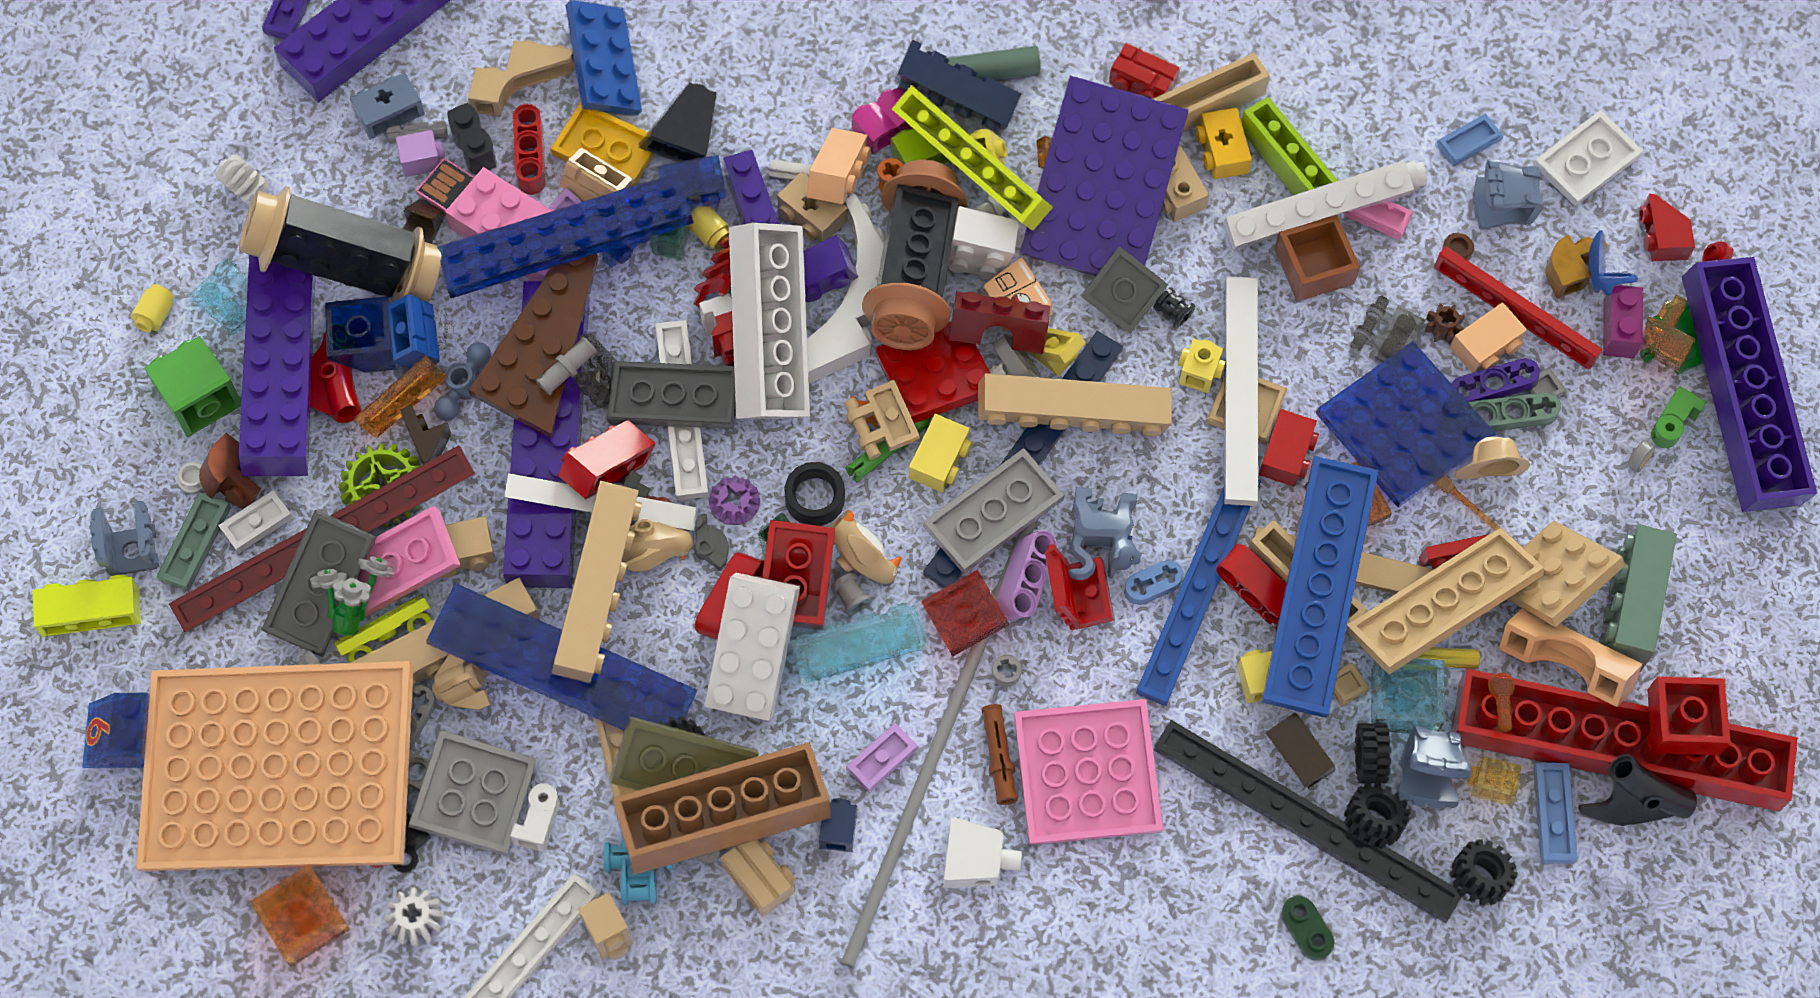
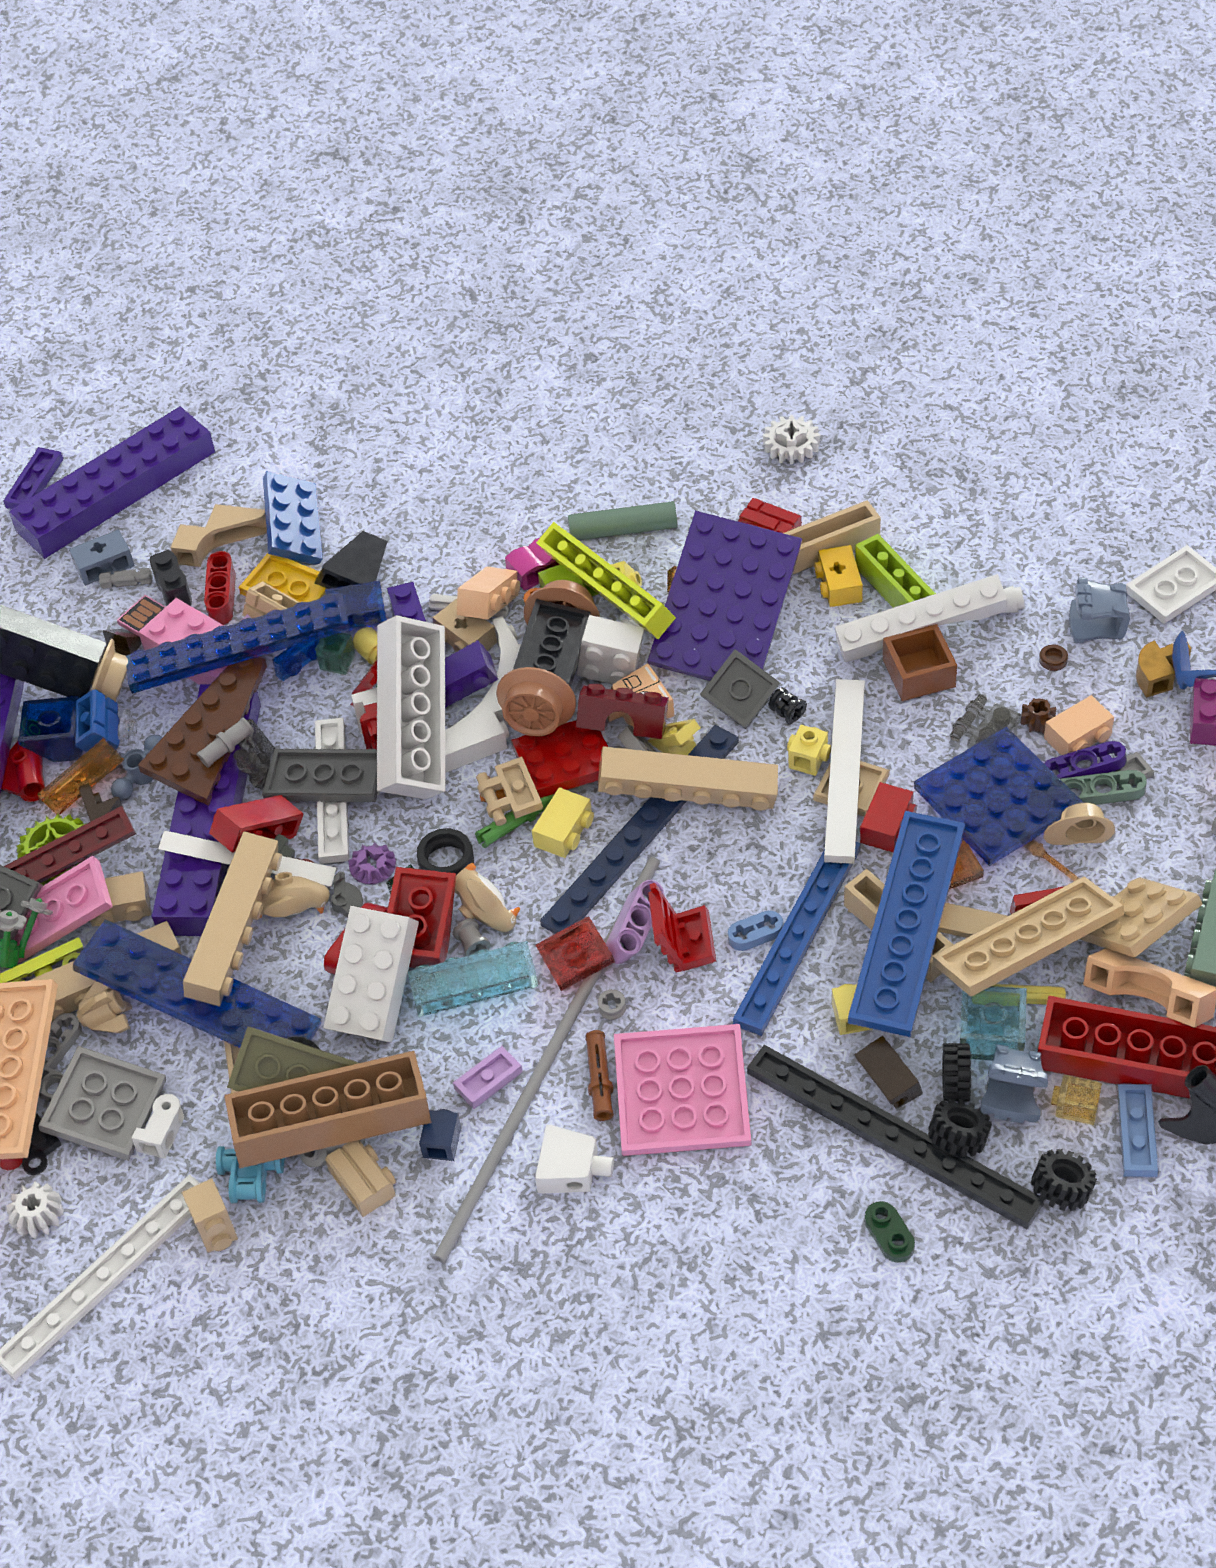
camera: 10 degrees right, 15 degrees down
(419, 152) = (123, 591): lavender brick -> none
(957, 87) = (599, 529): dark blue wedge -> none
(993, 510) = (606, 866): light grey plate -> none
(1103, 529) = (708, 883): sand blue animal -> none
(1185, 190) = (799, 612): tan brick -> none
(1253, 582) = (845, 924): red beam -> none
(1349, 685) = (936, 1018): tan tile -> none
(1384, 217) = (982, 632): bright pink plate -> none
(1469, 140) = (1065, 572): medium blue tile -> none
(1502, 687) = (1082, 1010): clear orange bar -> none
(1530, 315) = (1124, 711): red tile -> none

